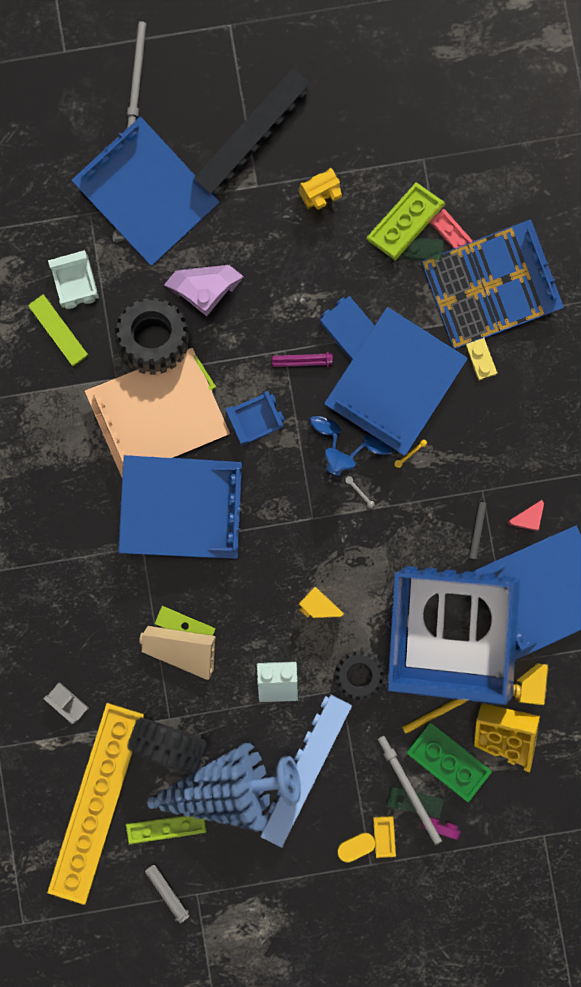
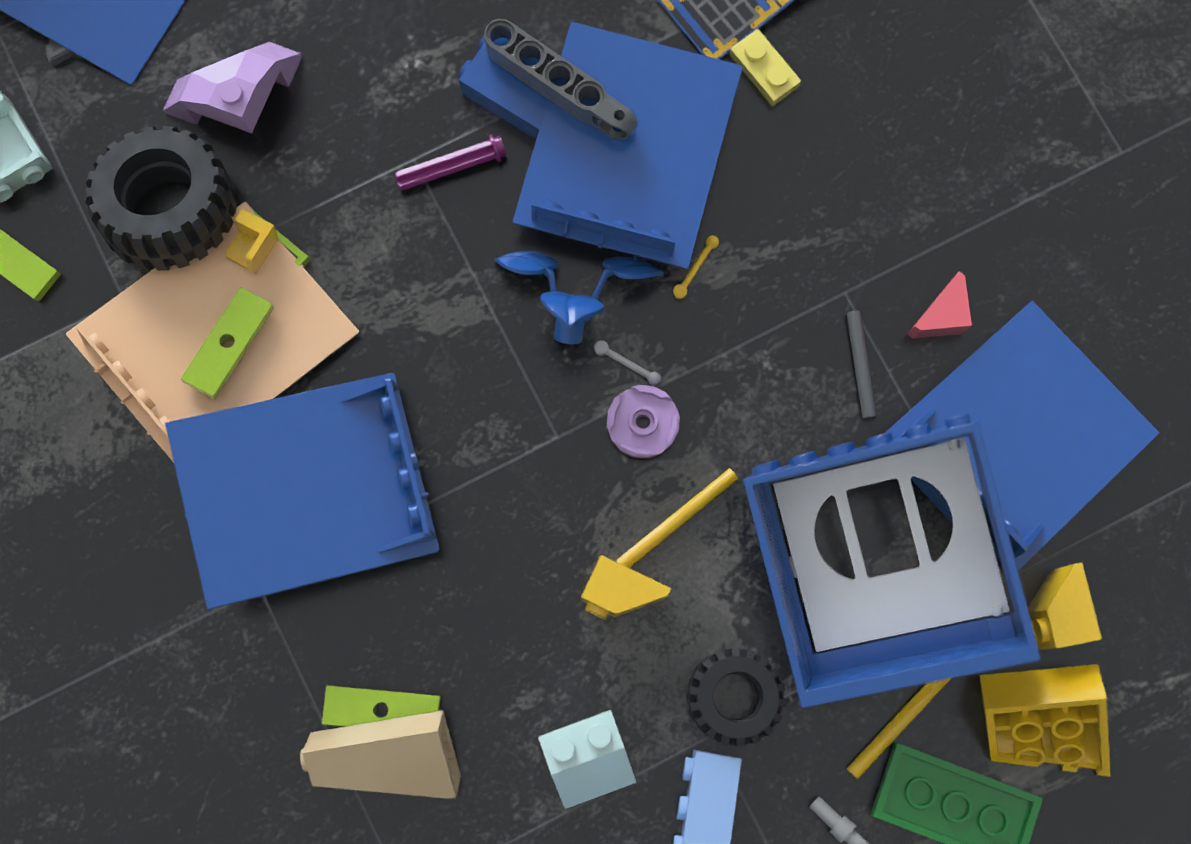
camera: 20 degrees left, 5 degrees down
(172, 412) = (239, 324): none -> lime tile
(189, 371) = (252, 242): none -> yellow panel
(255, 418) = (397, 290): blue panel -> none
(359, 579) = (677, 519): none -> yellow bar
(361, 333) = (603, 115): none -> dark grey piece
(361, 515) = (647, 403): none -> lavender plate

